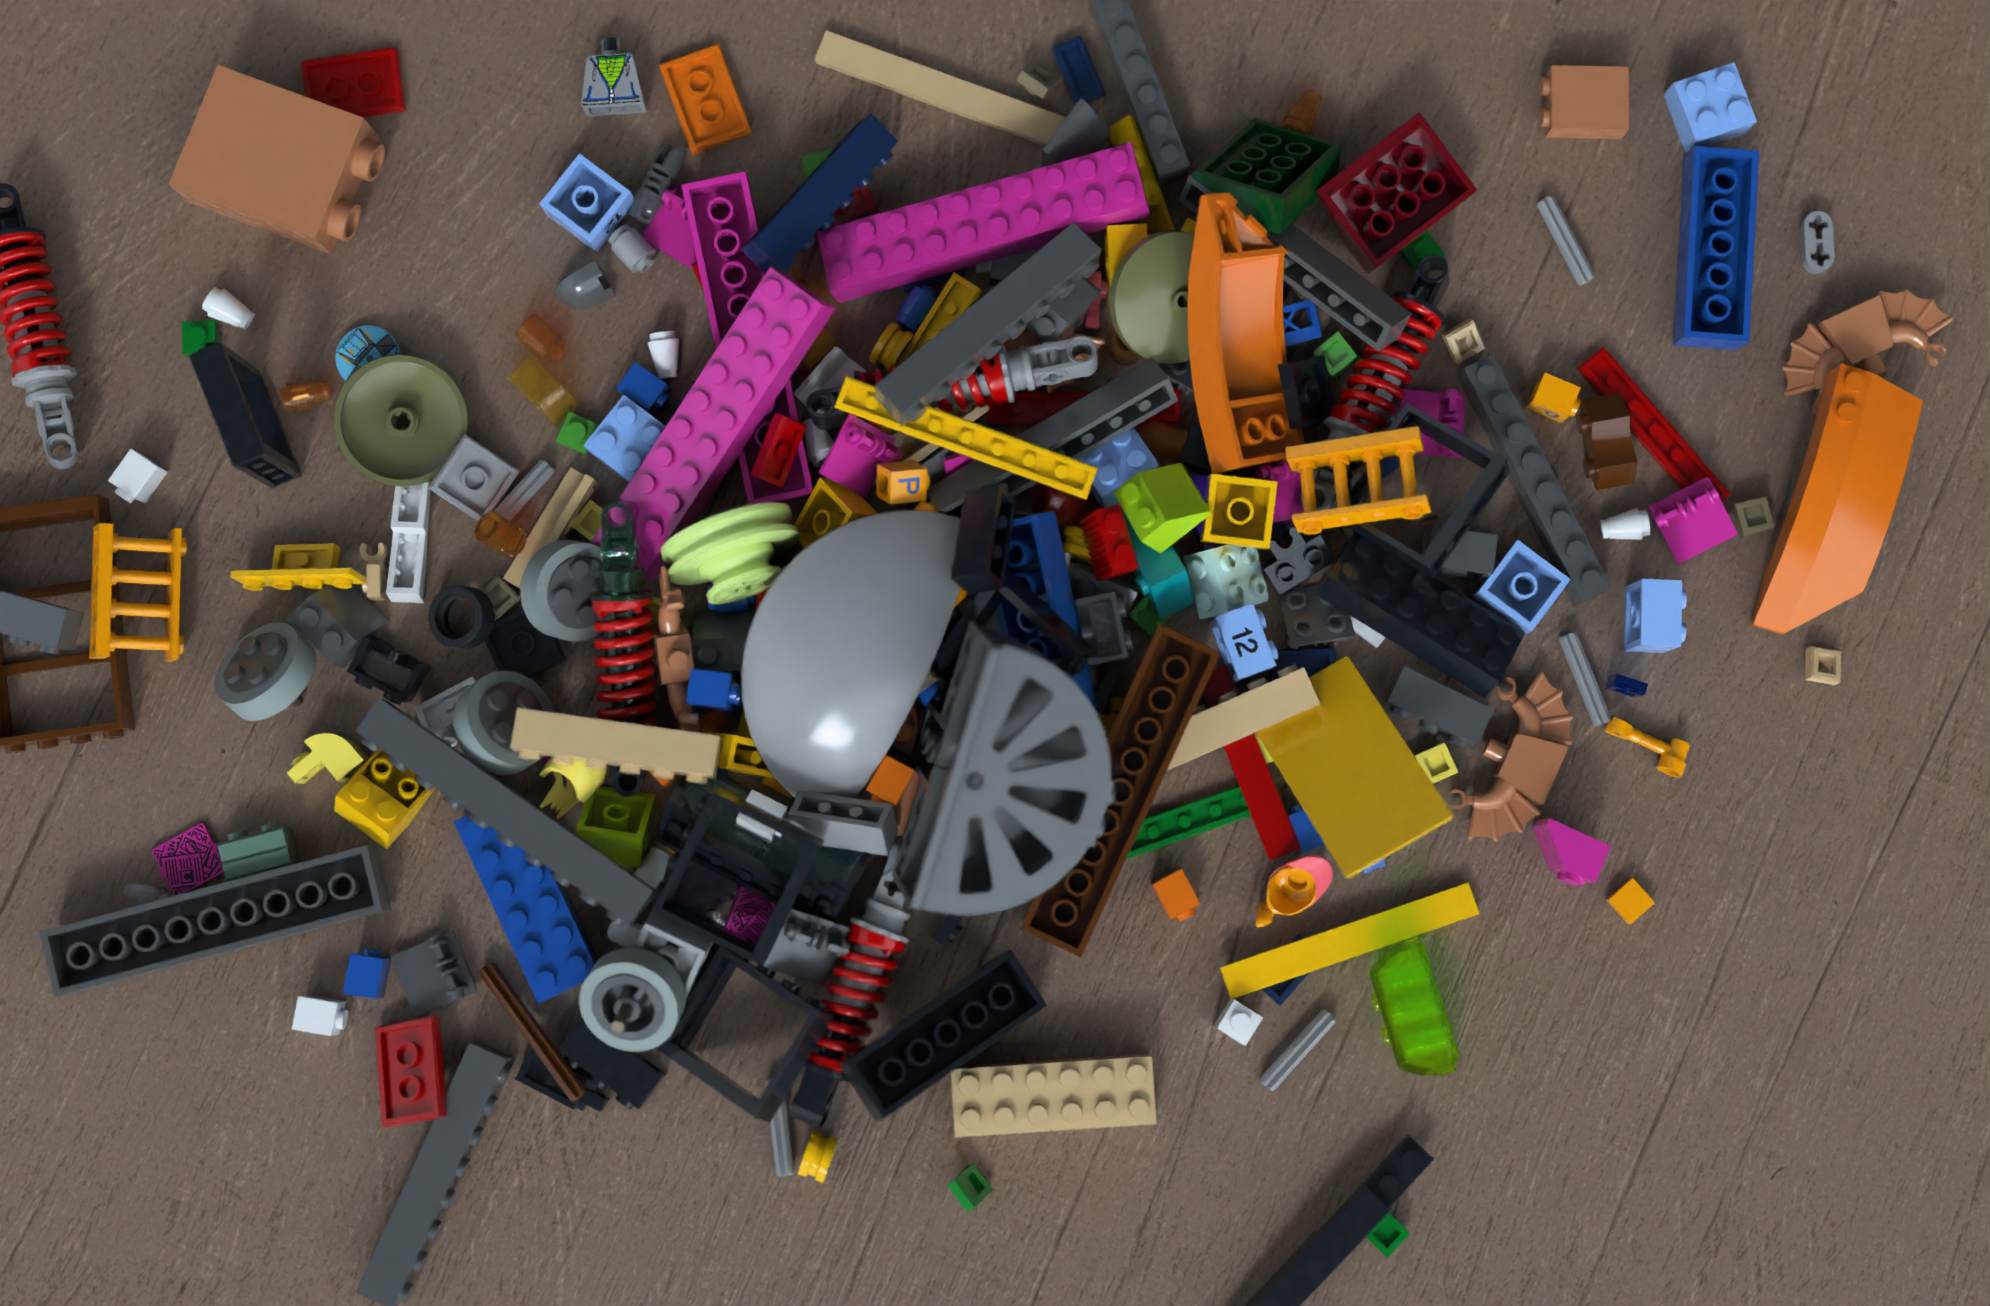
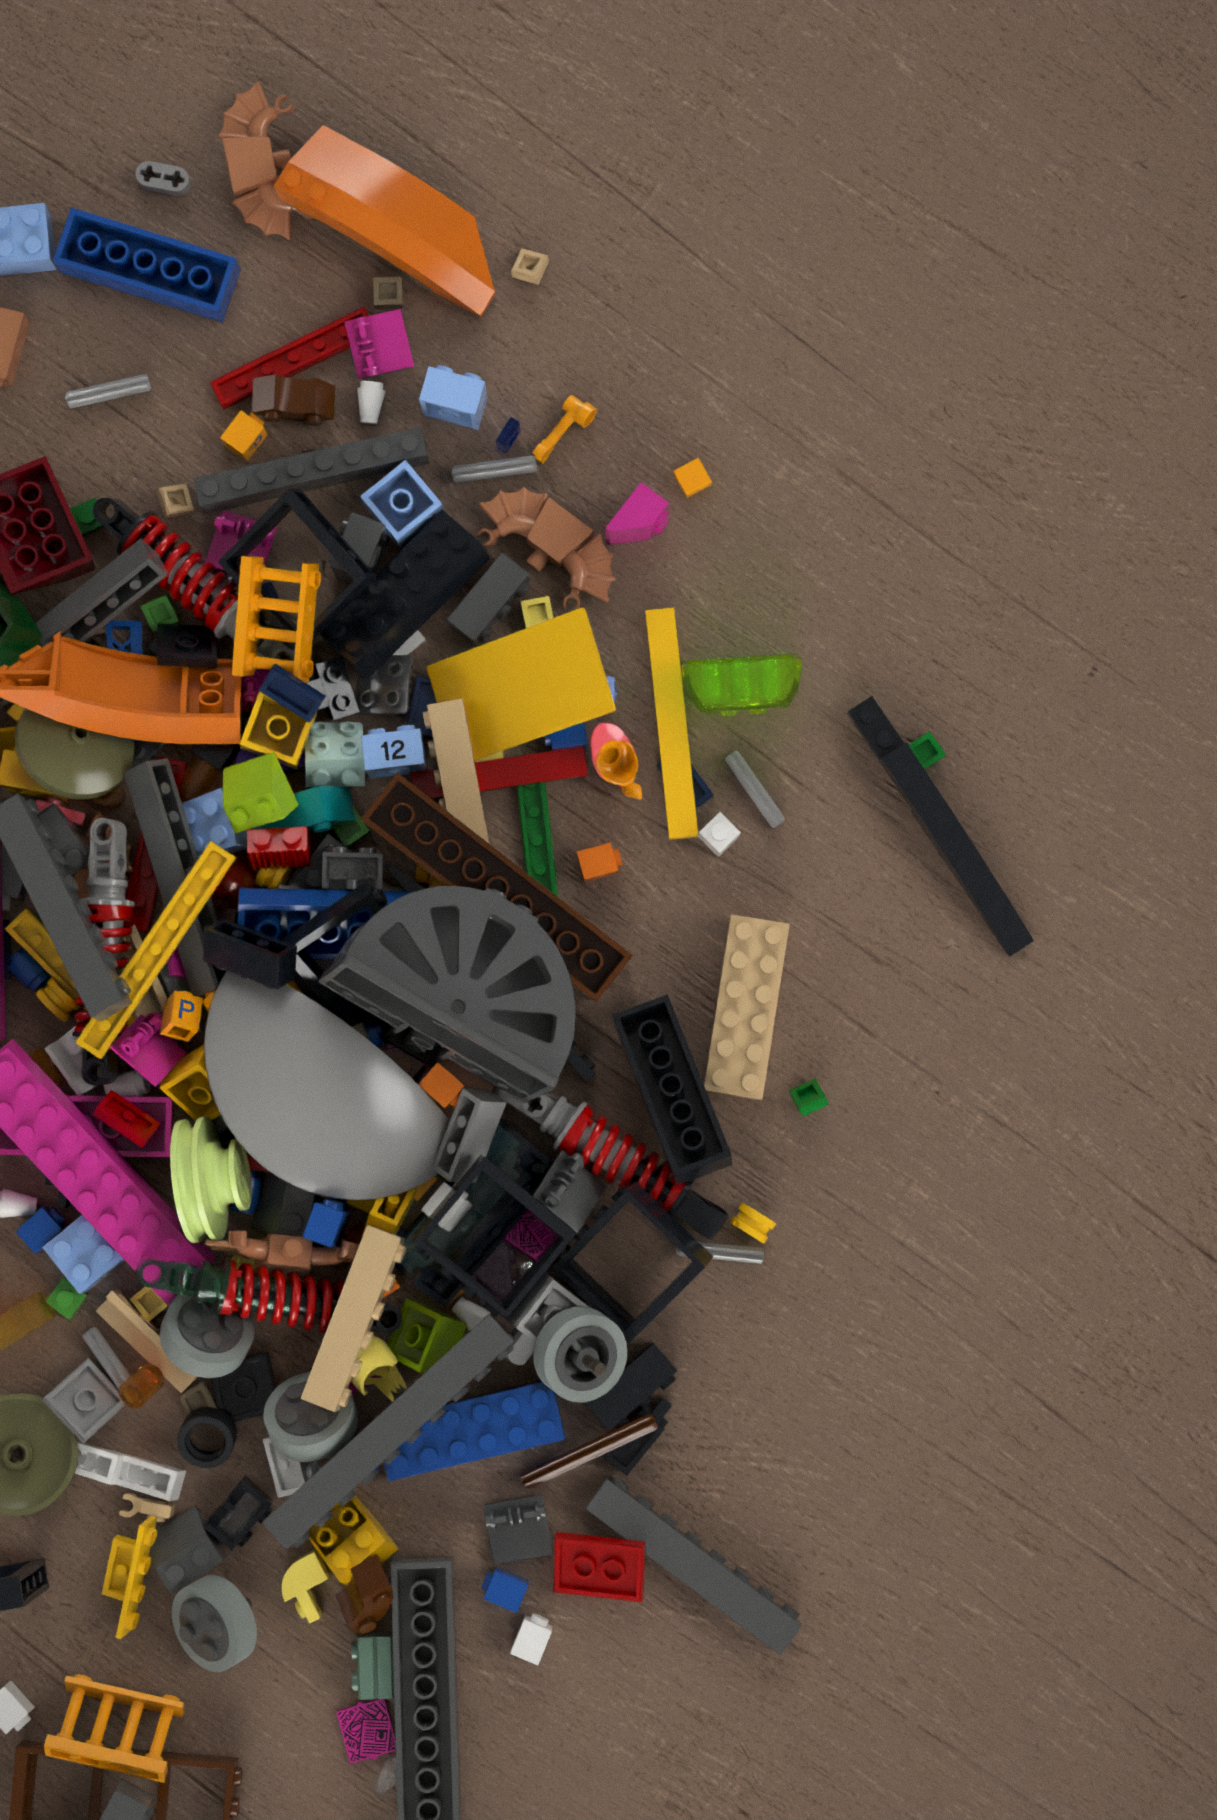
camera: 75 degrees left, 0 degrees up
(326, 826) = (366, 1596): none -> reddish brown brick
(1280, 517) = (292, 693): none -> dark blue tile

